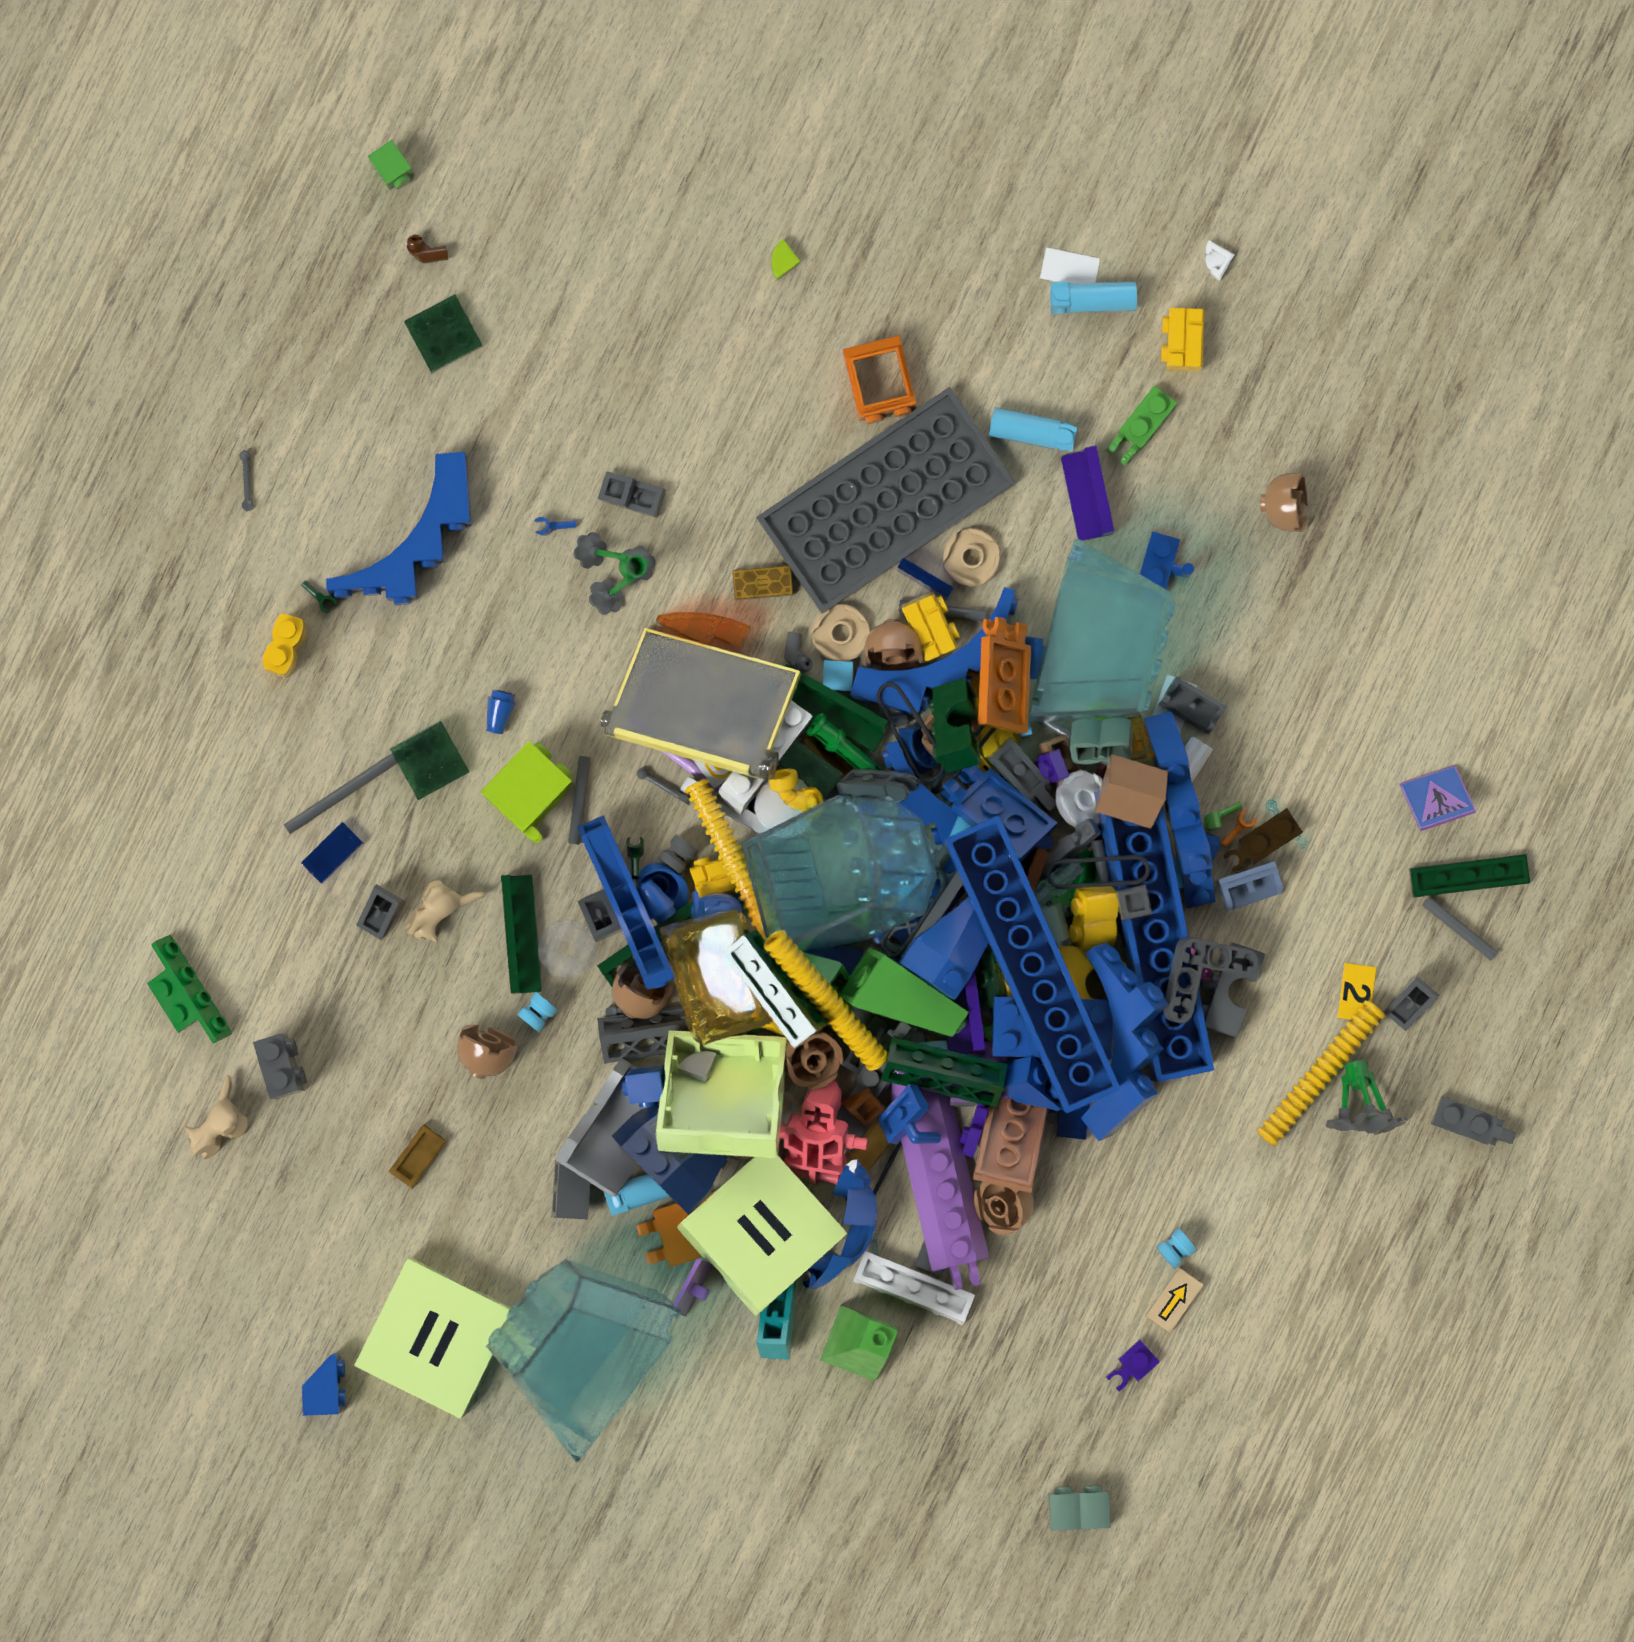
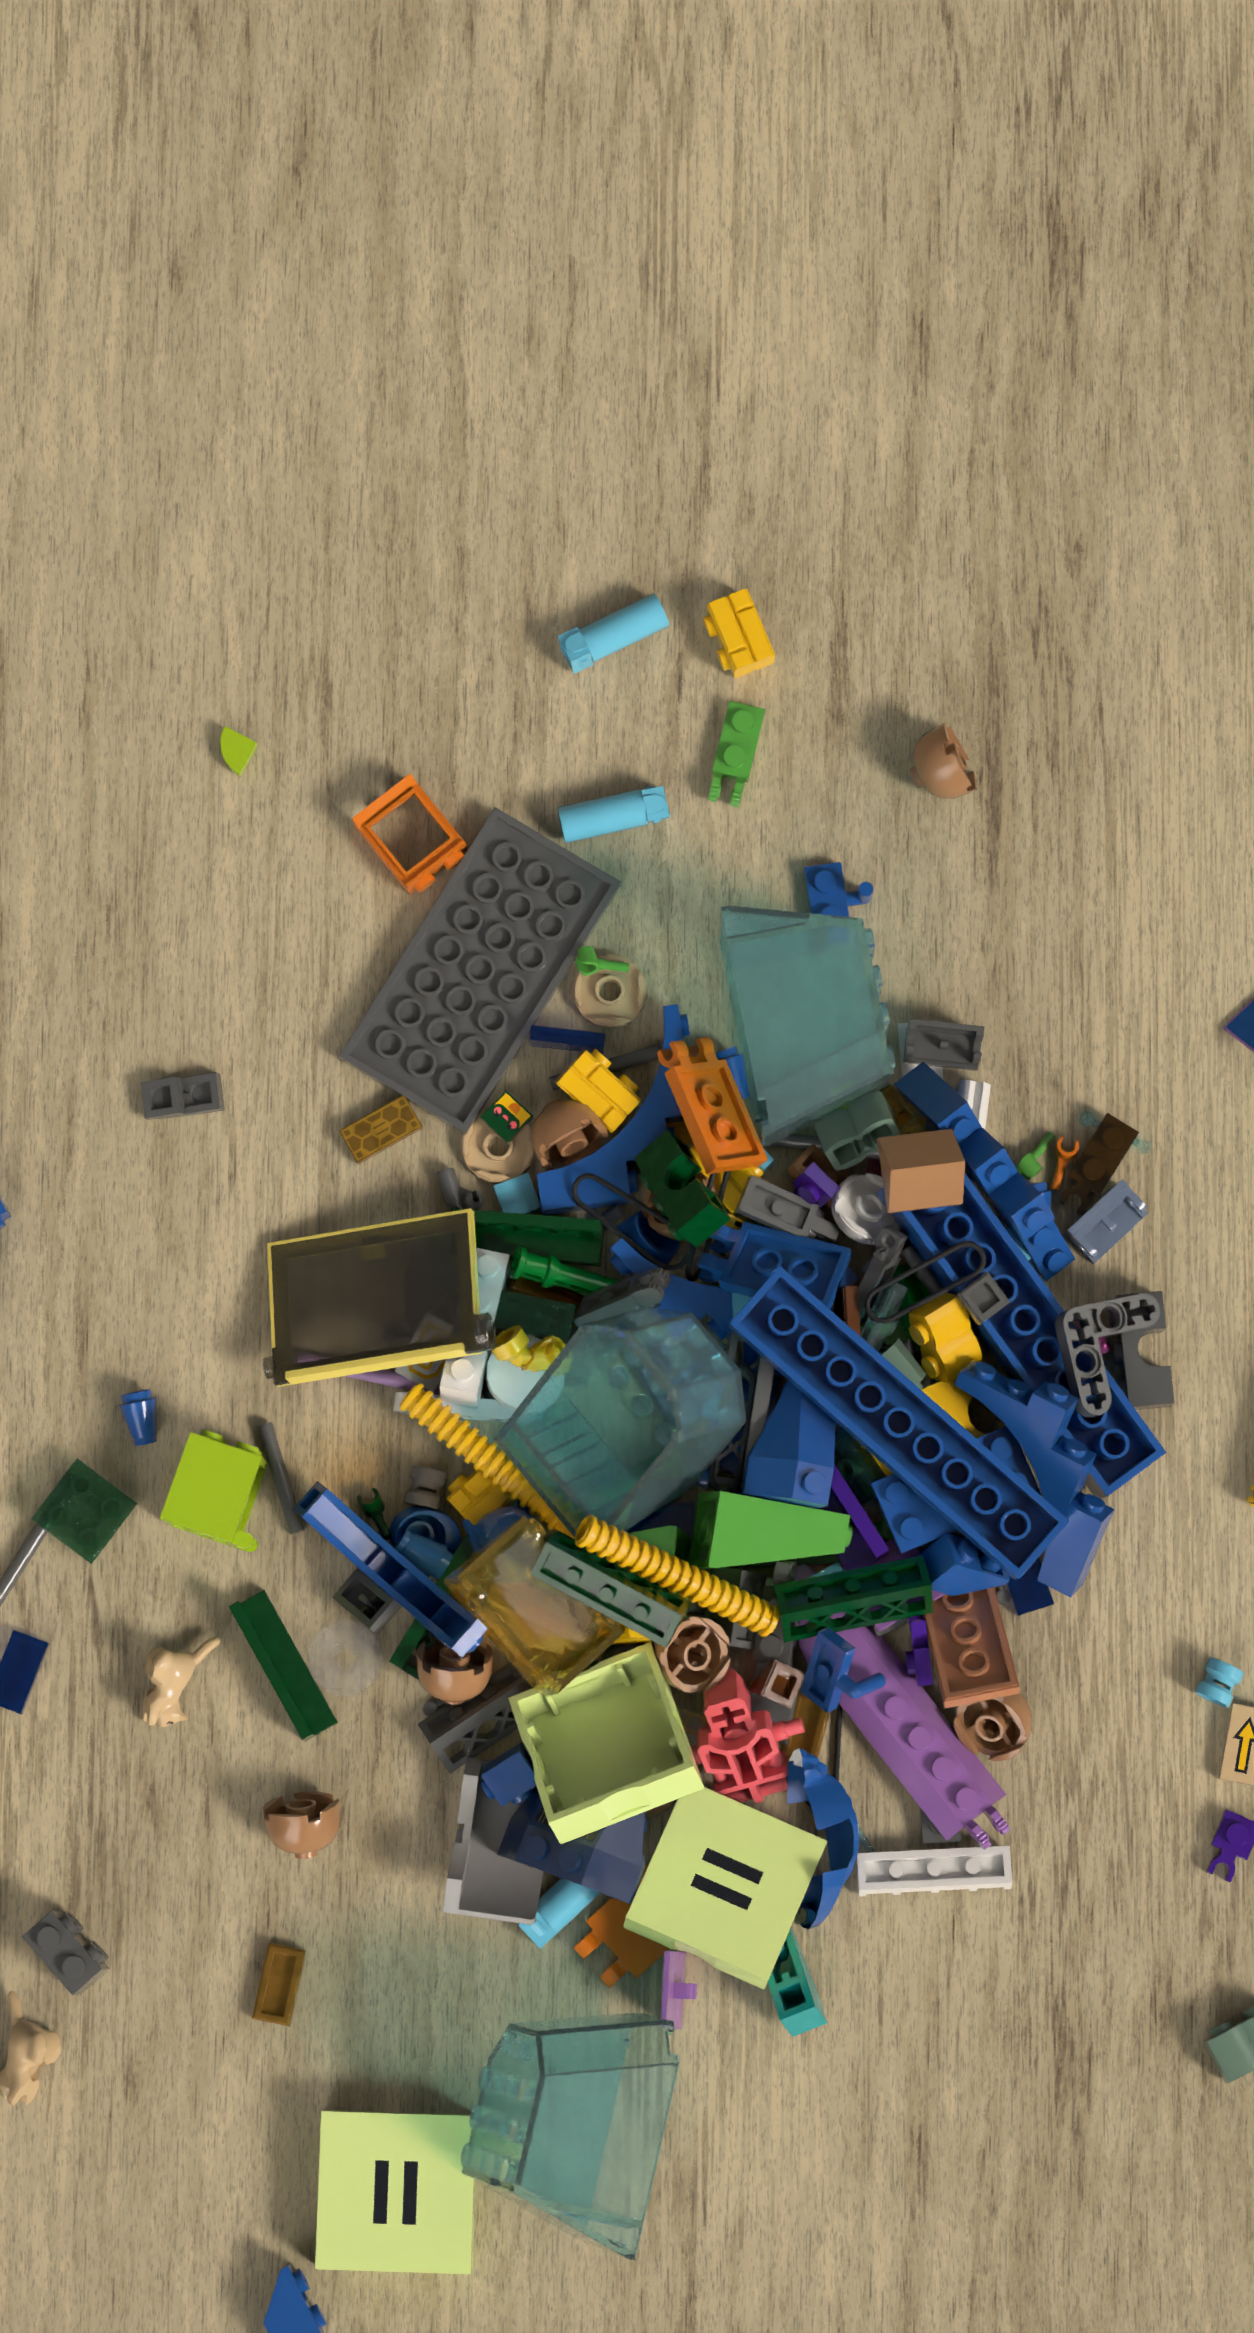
camera: 20 degrees left, 5 degrees down
(379, 912) = (104, 1715): dark grey slope -> none
(540, 1005) = (347, 1740): medium azure wheel -> none
(553, 525) = (107, 1173): blue hand -> none
(569, 1194) = (478, 1945): dark grey hinge -> none
(633, 566) = (221, 1175): dark grey plant -> none
(642, 773) = (341, 1414): dark grey hinge -> none
(698, 1065) = (562, 1723): light grey tile -> none
(706, 627) = (338, 1209): clear orange slope -> none
(856, 615) = (506, 1117): none -> dark green tile
(859, 1343) = (901, 1966): bright green slope -> none
(965, 531) = (589, 963): none -> bright green hand
(1069, 267) = (569, 611): white sticker -> none
(1087, 494) = (710, 857): dark purple panel -> none
(1217, 259) = (735, 527): white tile -> none

